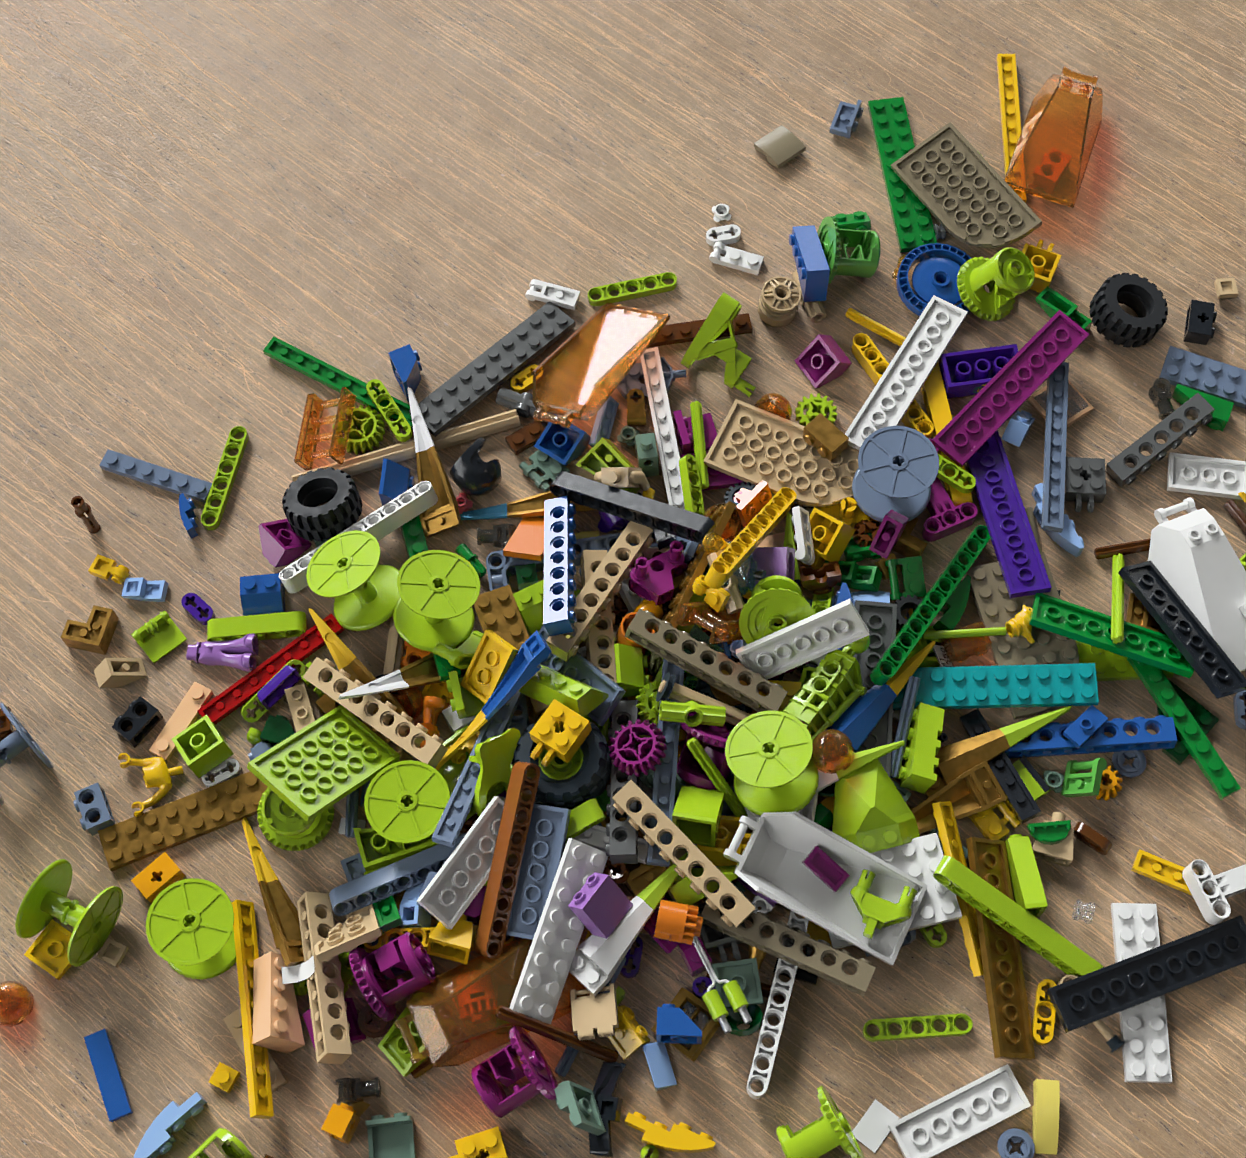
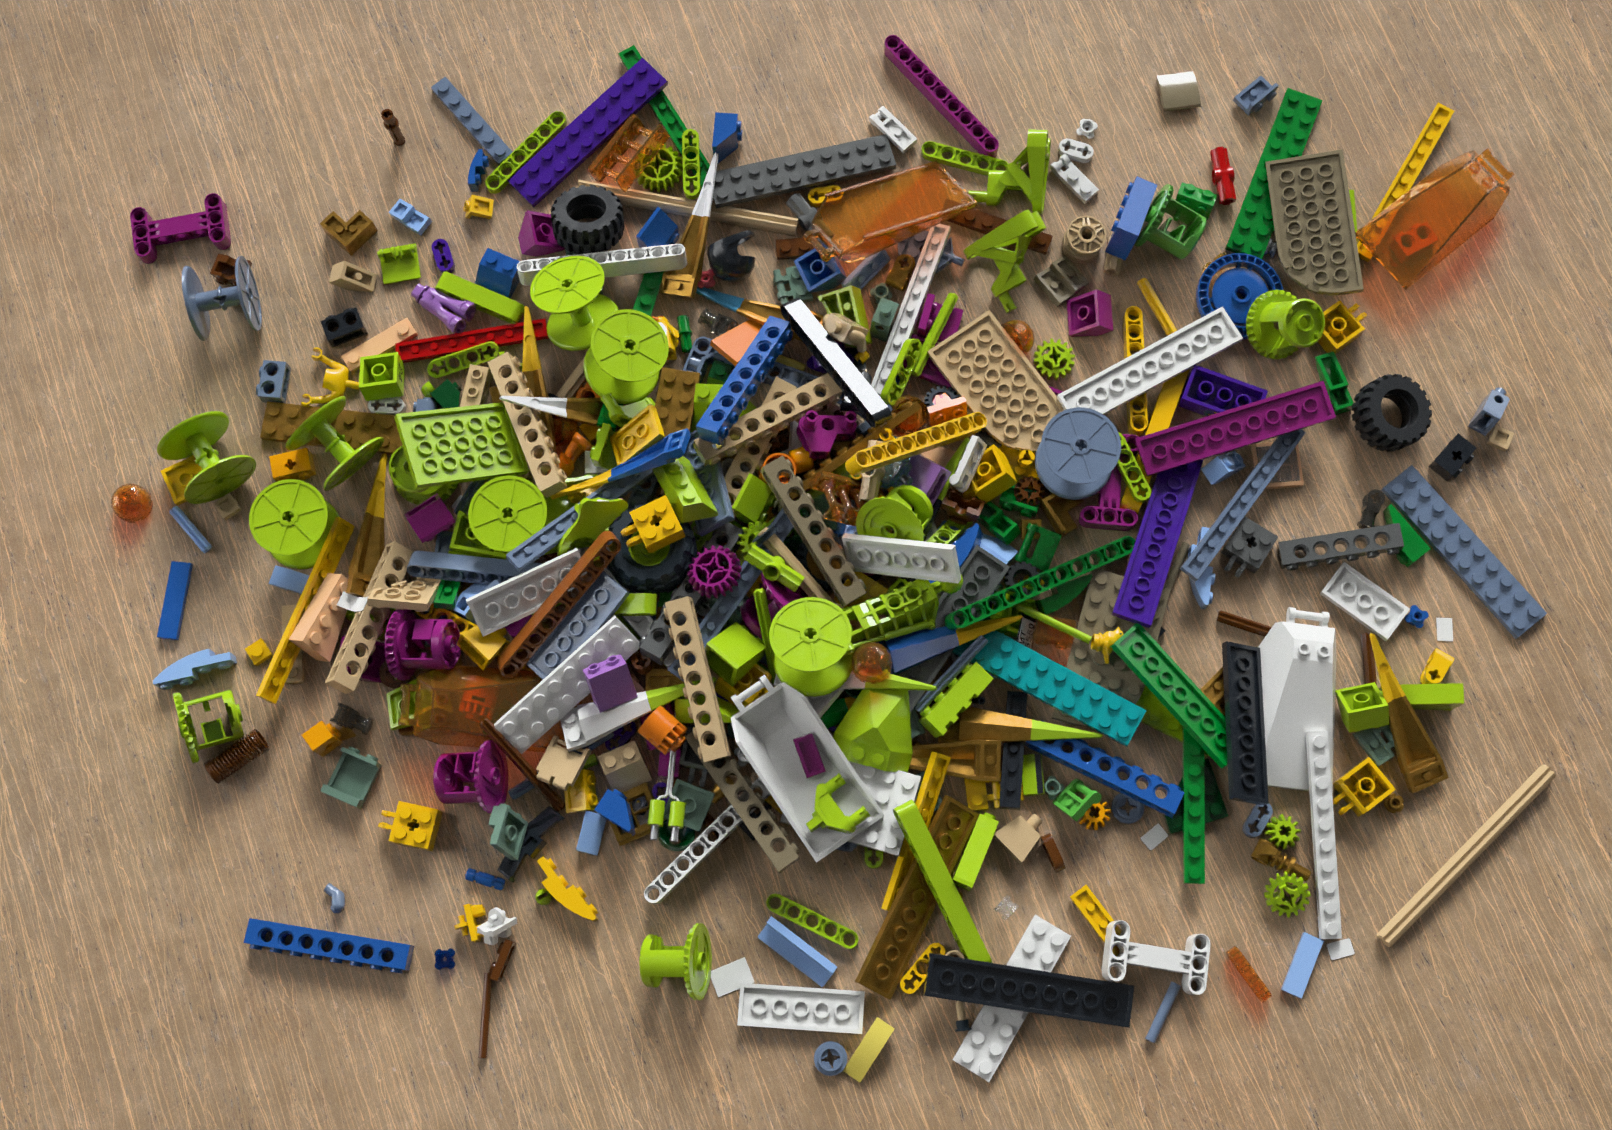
camera: 30 degrees right, 10 degrees up
(86, 996) = (190, 529): none -> light blue axle
(104, 567) = (388, 181): yellow plate -> none
(193, 828) = (320, 426): none -> lime piece
(207, 547) = (478, 207): none -> yellow bracket
(216, 989) = (288, 579): none -> light blue slope
(274, 432) = (587, 132): none -> dark purple plate
(274, 689) = (462, 360): dark purple piece -> none
(327, 852) = (430, 518): none -> magenta slope
(578, 247) = (937, 89): none -> magenta beam
(654, 983) = (625, 767): none -> tan slope
(702, 277) = (1014, 178): none -> lime connector
(713, 546) = (877, 435): clear yellow plate -> none
(714, 597) = (855, 483): yellow plate -> none
(779, 346) = (1061, 280): none -> dark tan slope
(825, 437) = (1042, 387): pearl gold brick -> none
(861, 194) = (1223, 176): none -> red piece
(888, 533) = (1043, 501): magenta slope -> none
(921, 1063) = (797, 952): none -> light blue panel
(1049, 832) = (1018, 829): green tile -> none
(1085, 726) = (1104, 758): blue plate -> none
(1117, 601) = (1204, 667): lime axle -> none
(1168, 775) = (1154, 837): none -> white sticker
(1204, 262) = (1493, 405): none -> sand blue torso

